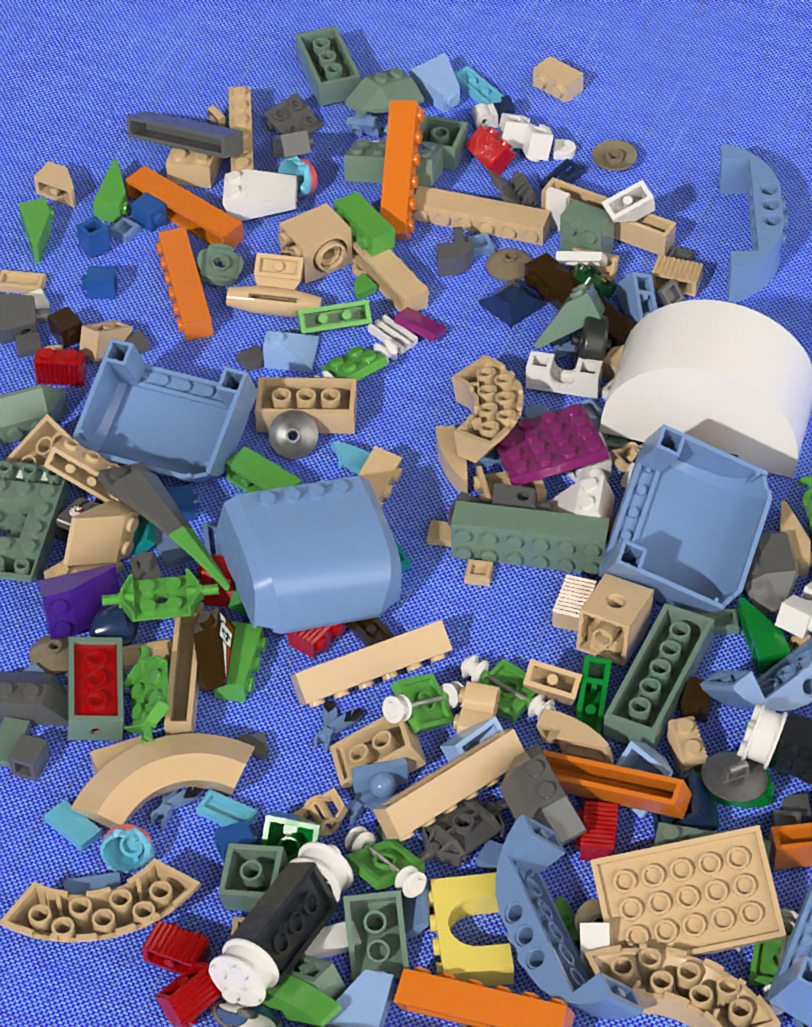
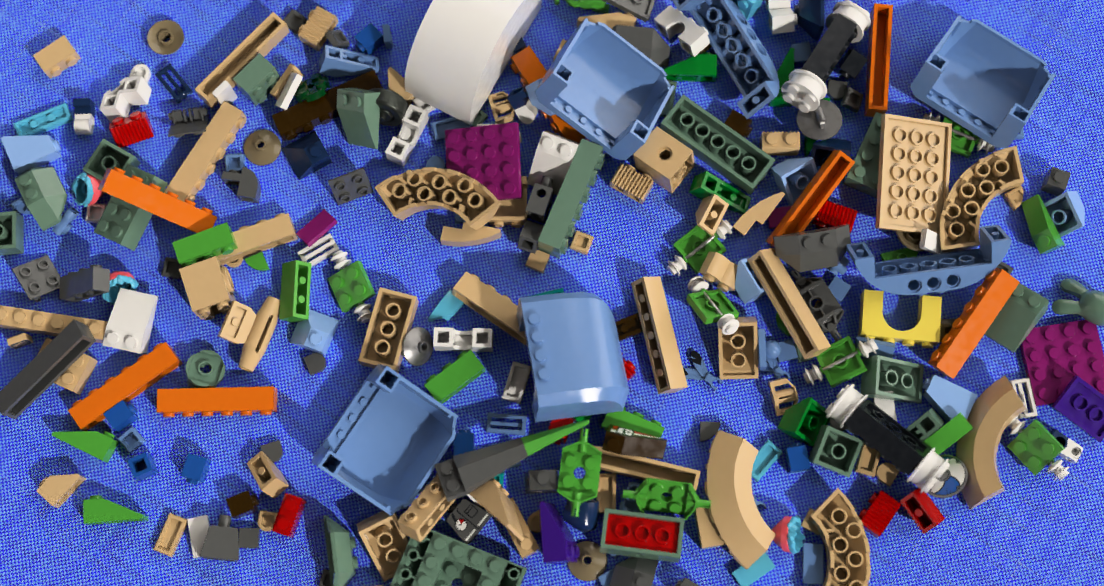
camera: 75 degrees left, 30 degrees up
(310, 460) = (453, 340): none -> white arch
(480, 335) = (350, 186): none -> dark grey hinge
(630, 203) = (255, 38): white slope -> none

